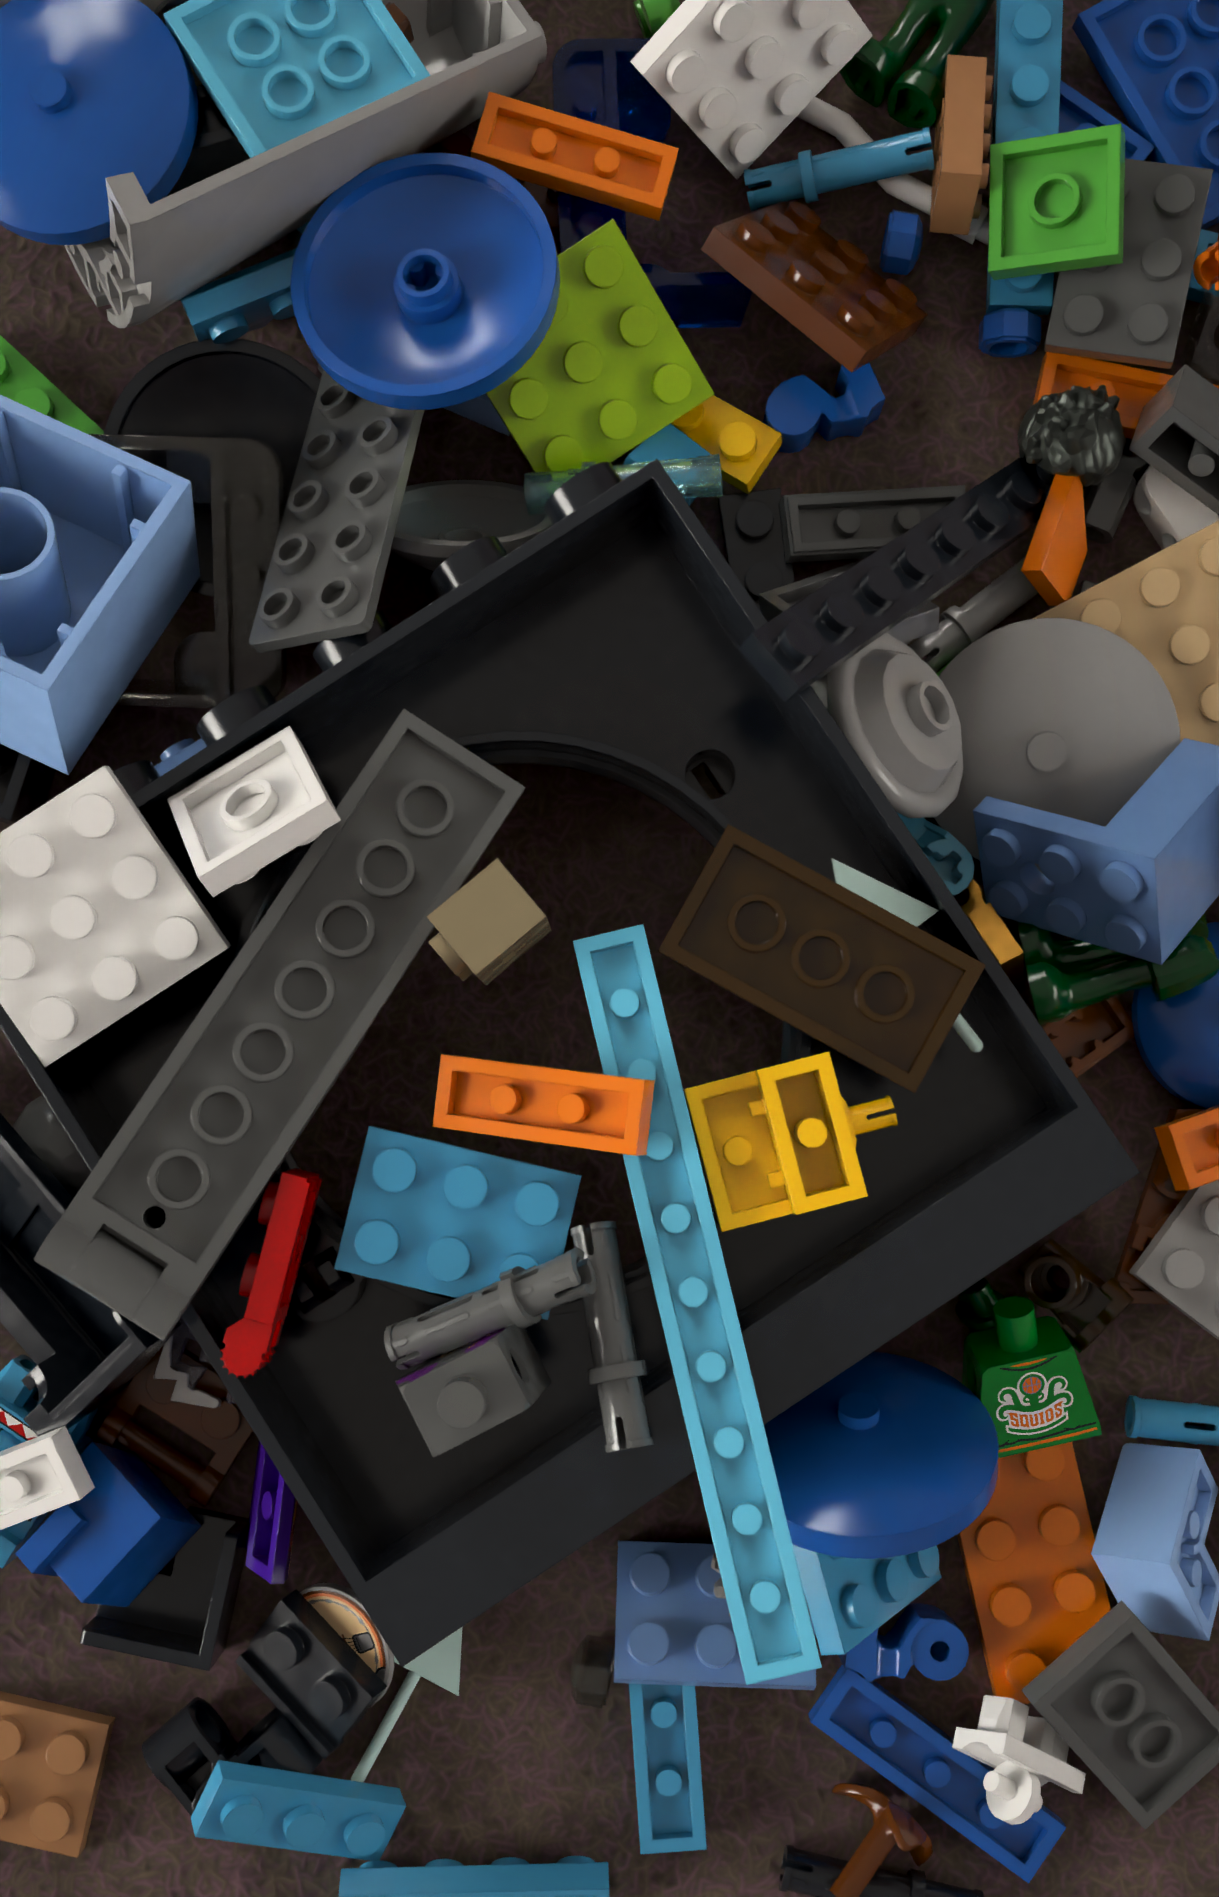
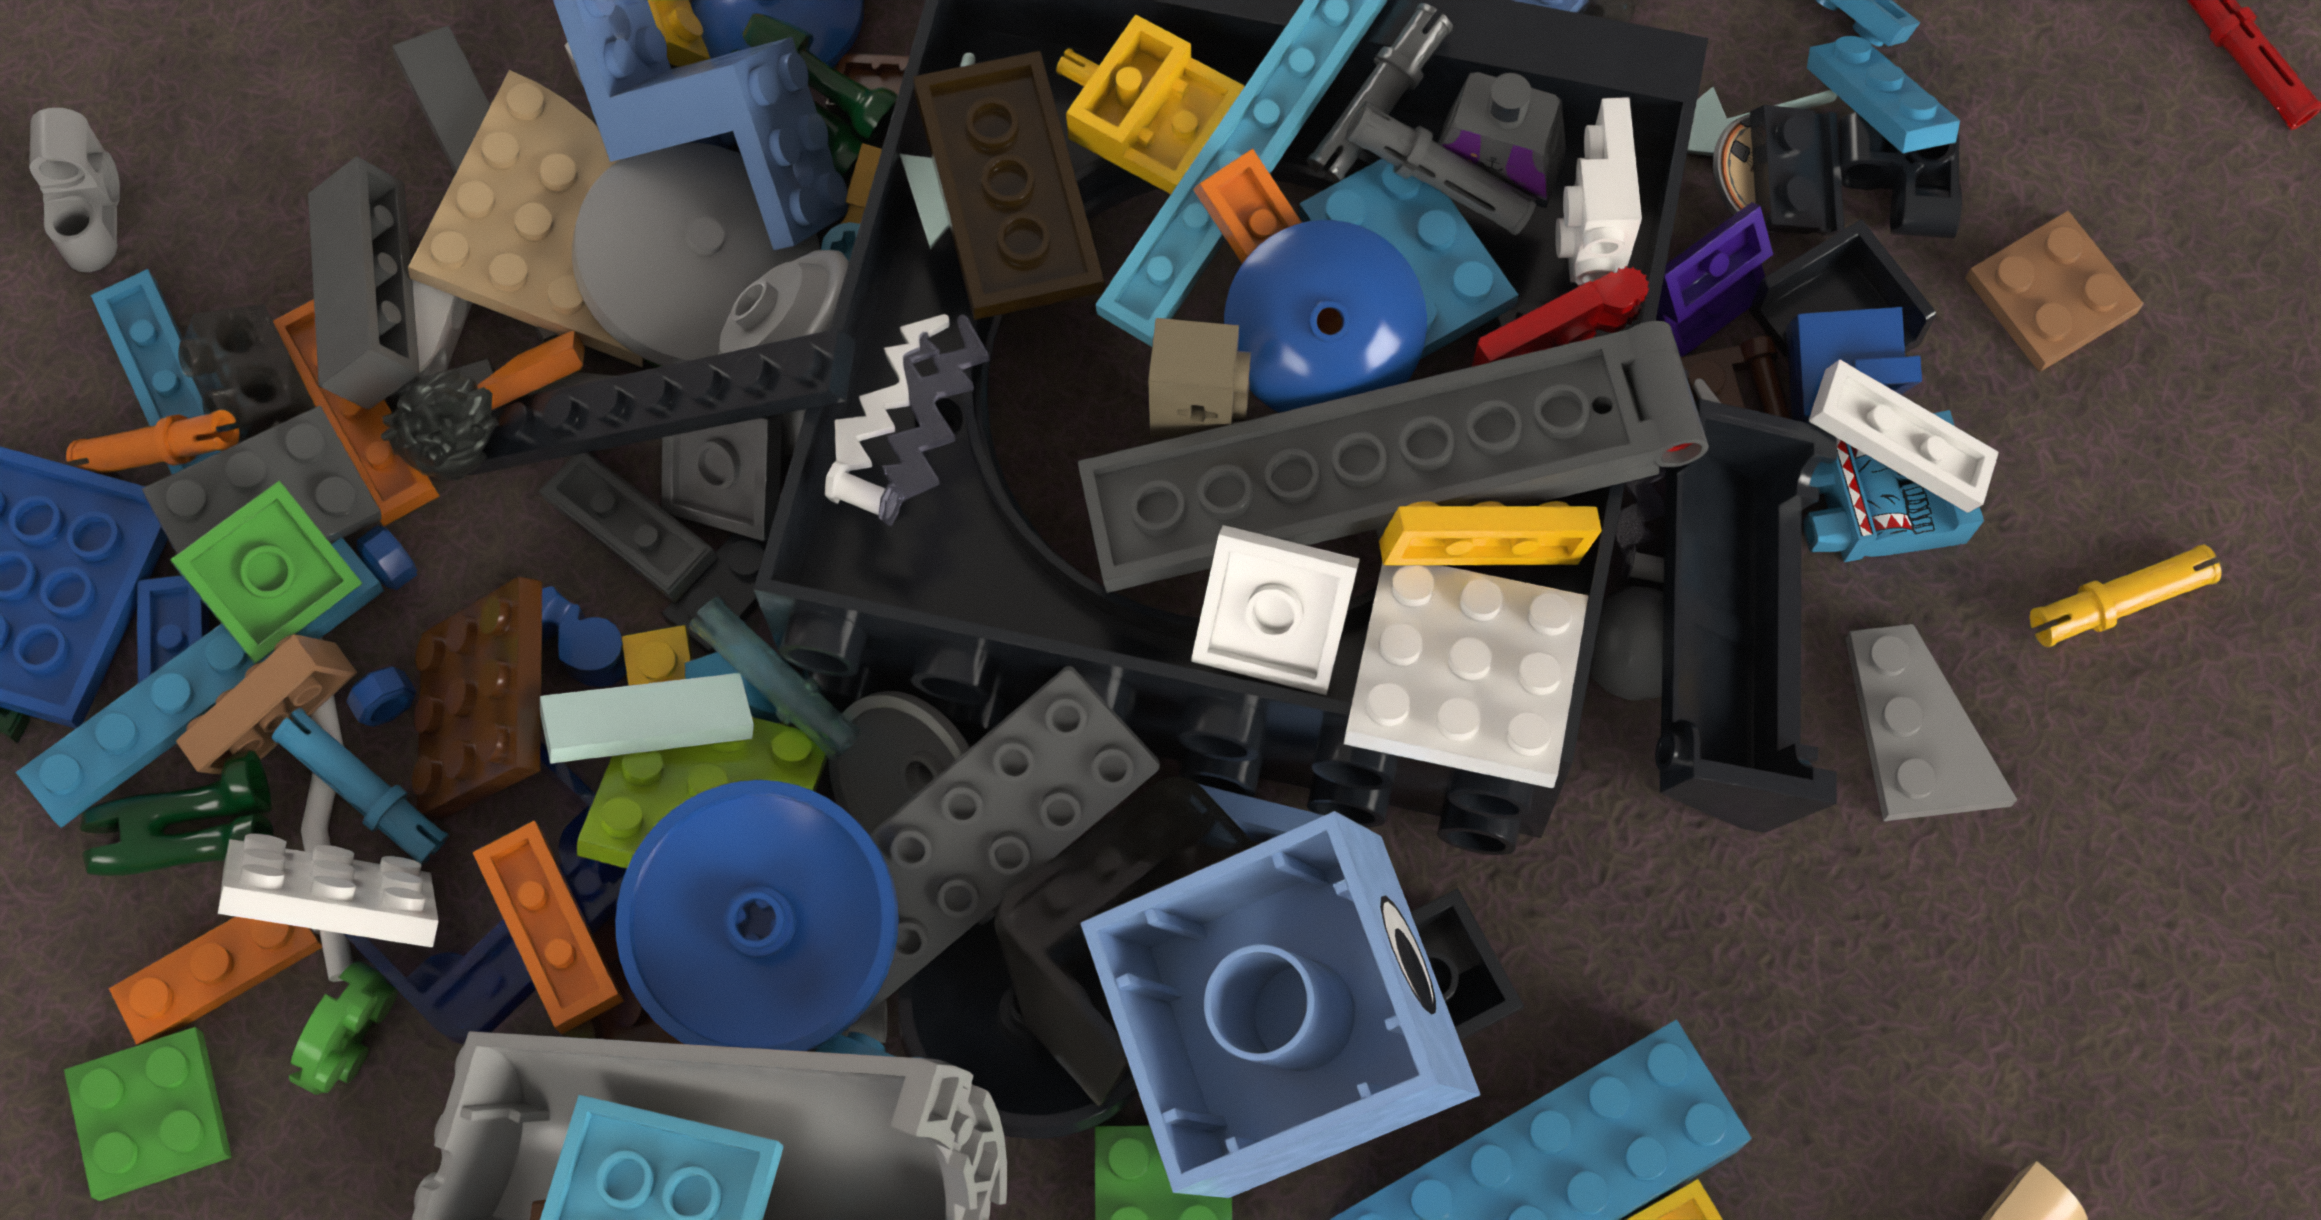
camera: 135 degrees left, 15 degrees down
(150, 1031) = (1489, 534): none -> yellow plate
(310, 1398) = (1604, 203): none -> white plate
(477, 1102) = (1318, 268): none -> blue dish
(672, 356) = (645, 717): none -> light aqua tile
(704, 730) = (914, 472): none -> piece

